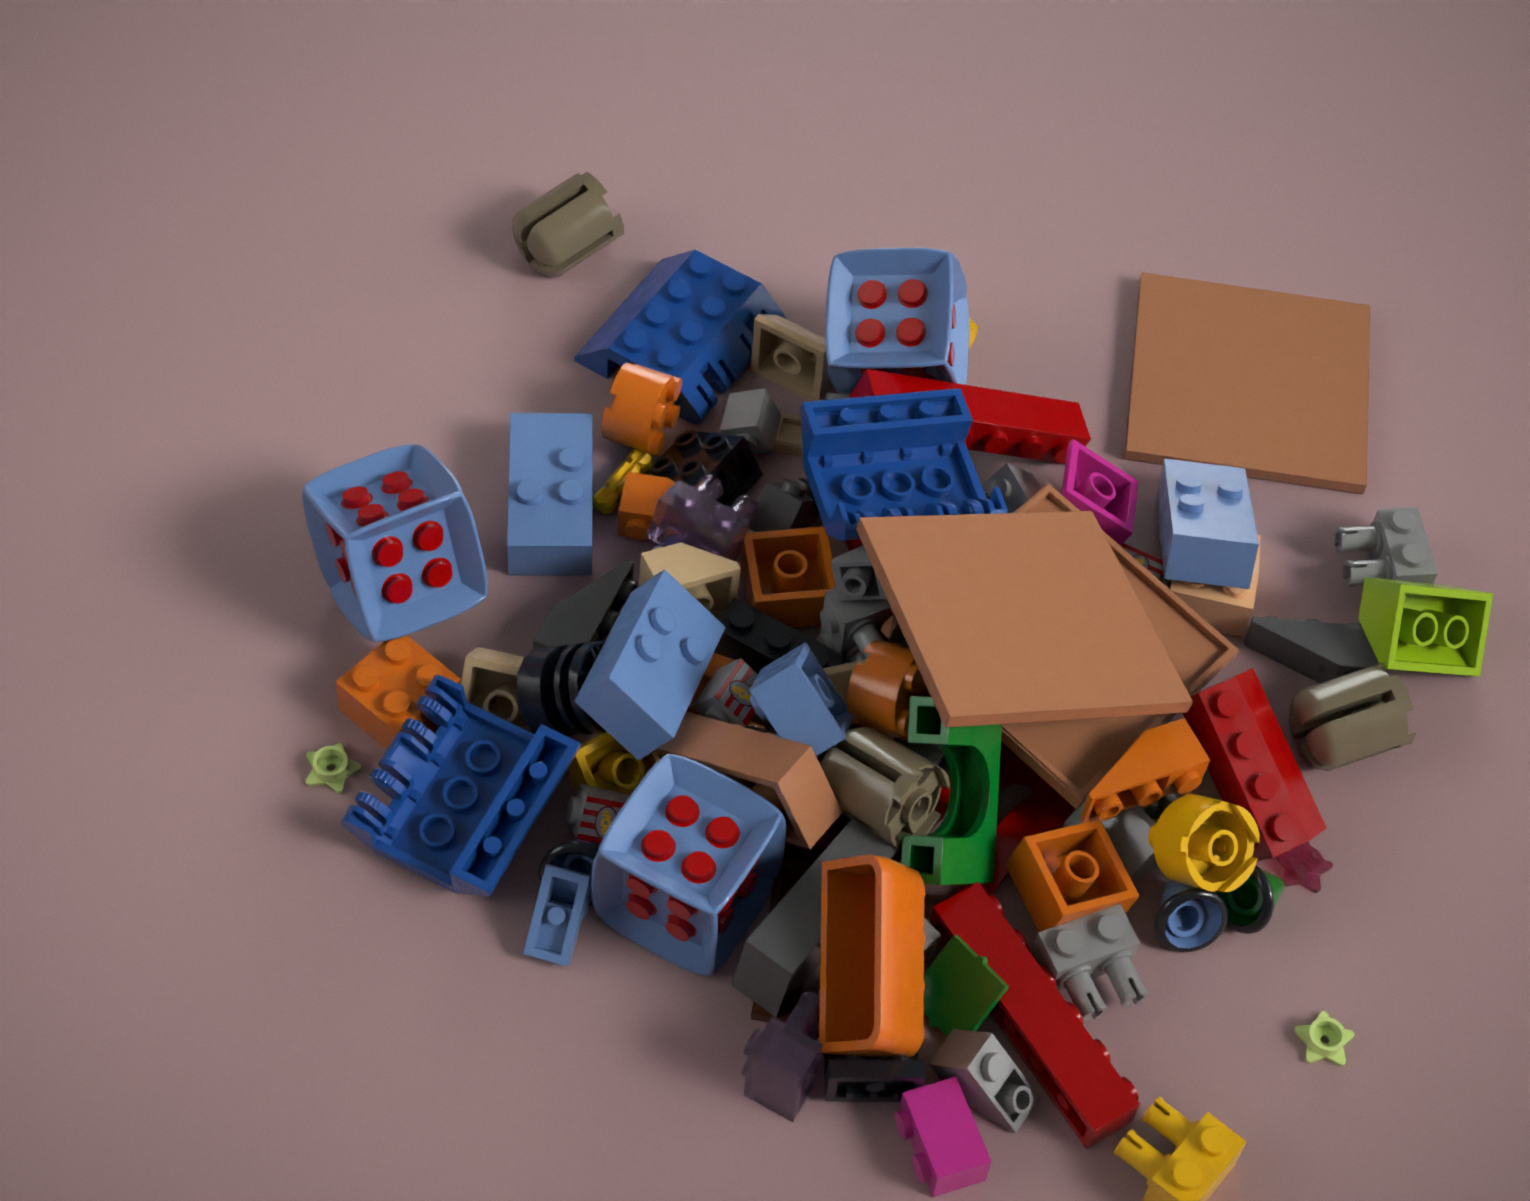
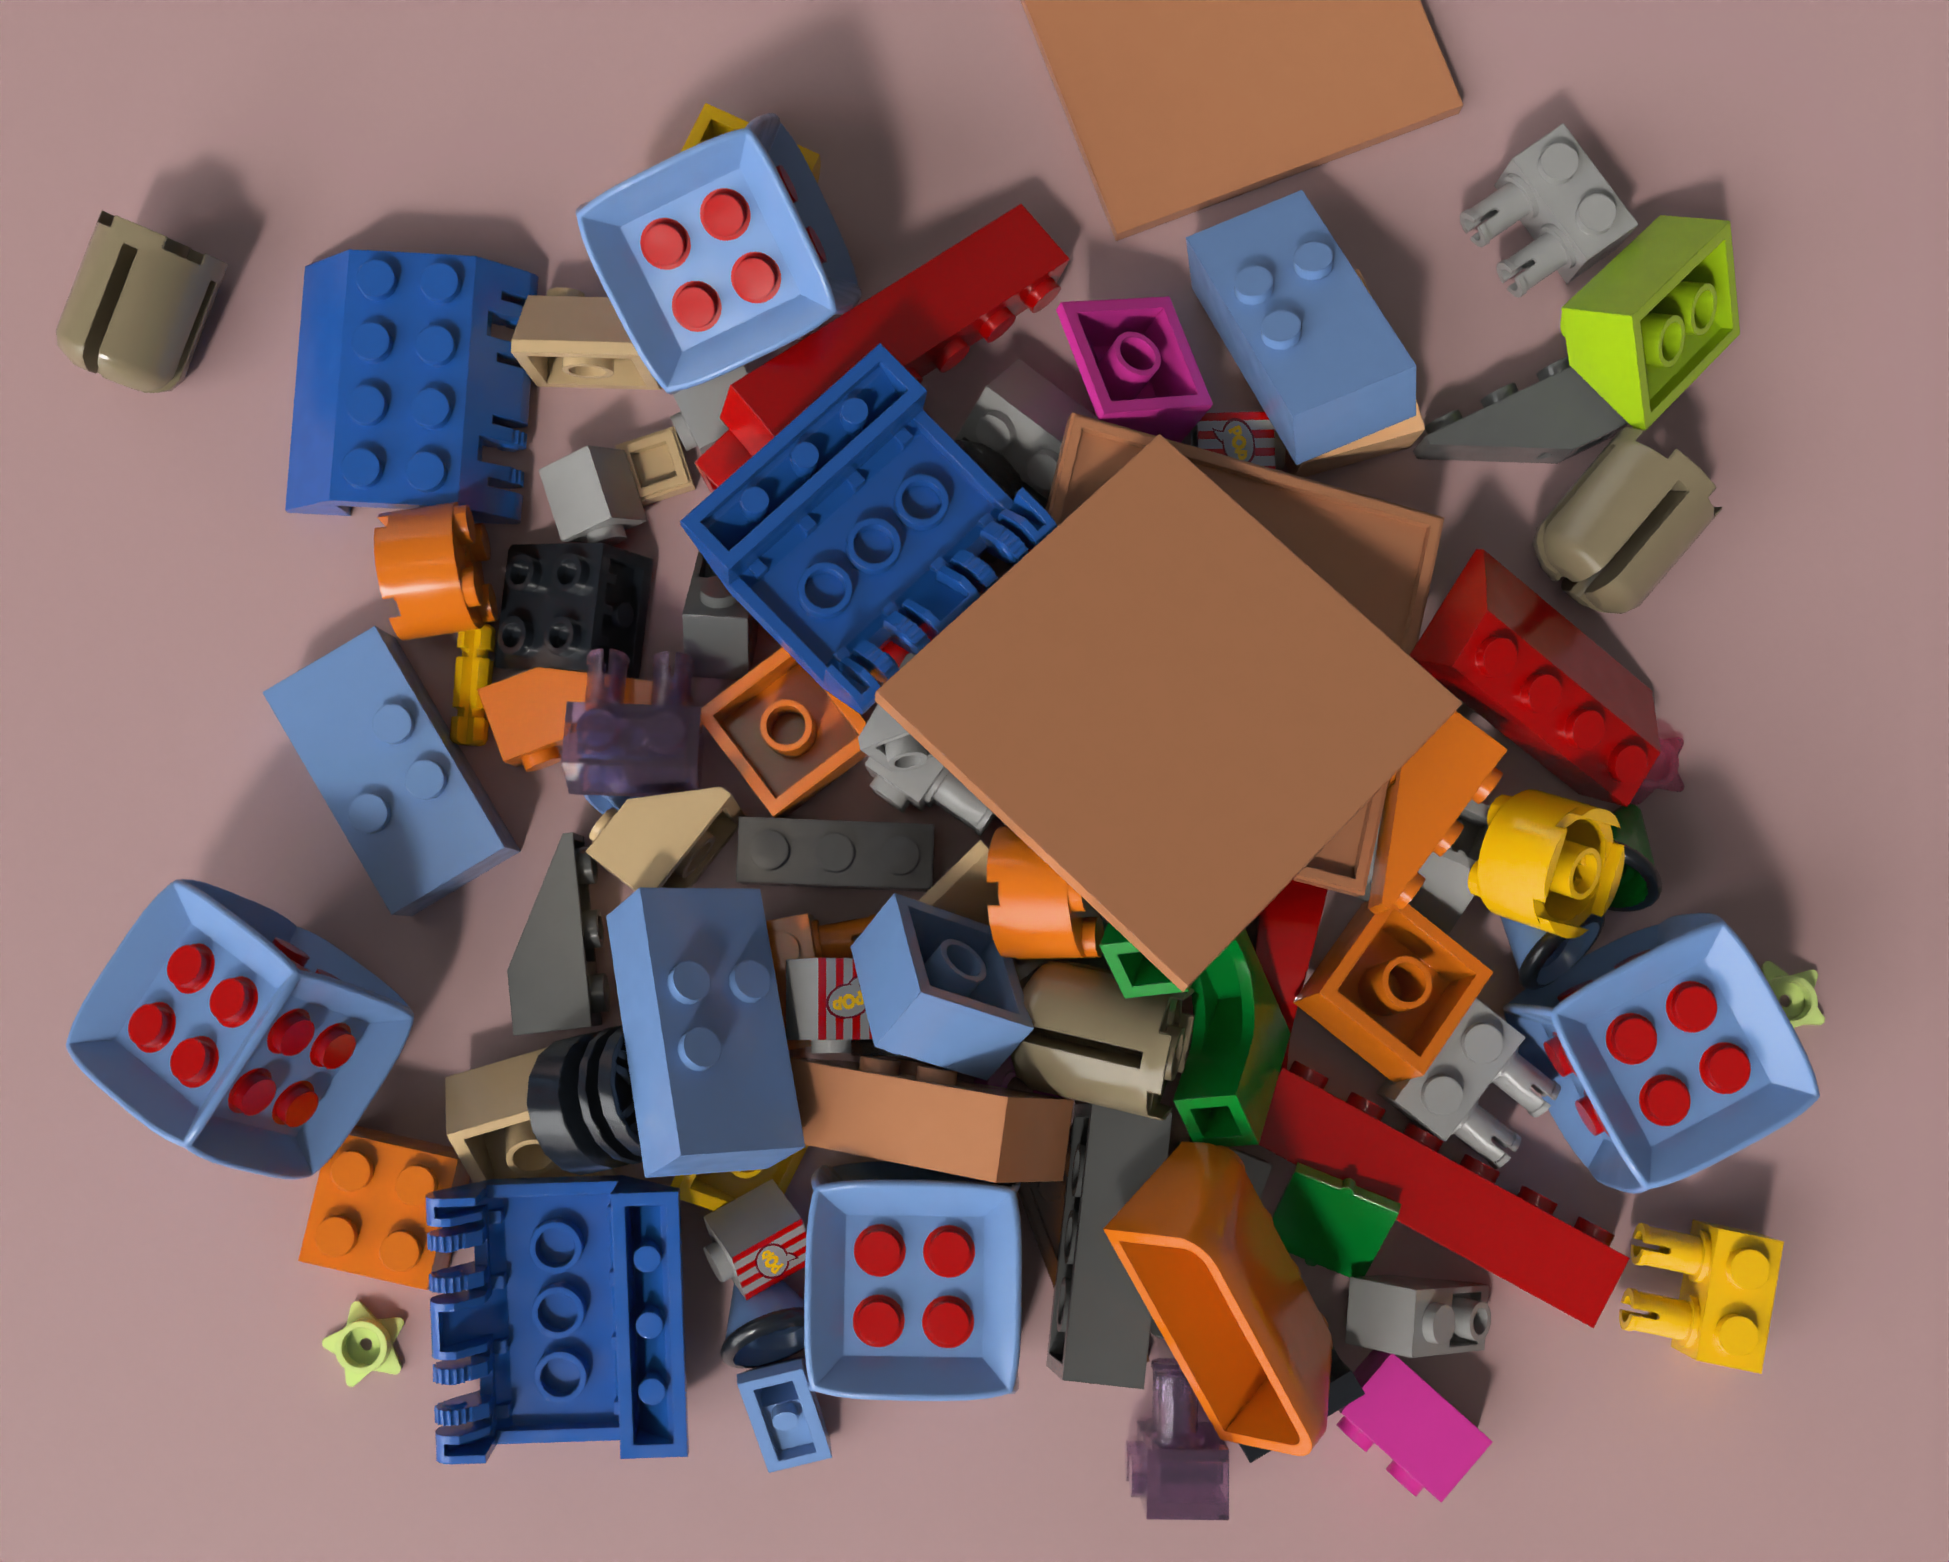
camera: 25 degrees left, 30 degrees up
(1220, 981) = (1664, 1053): none -> medium blue piece

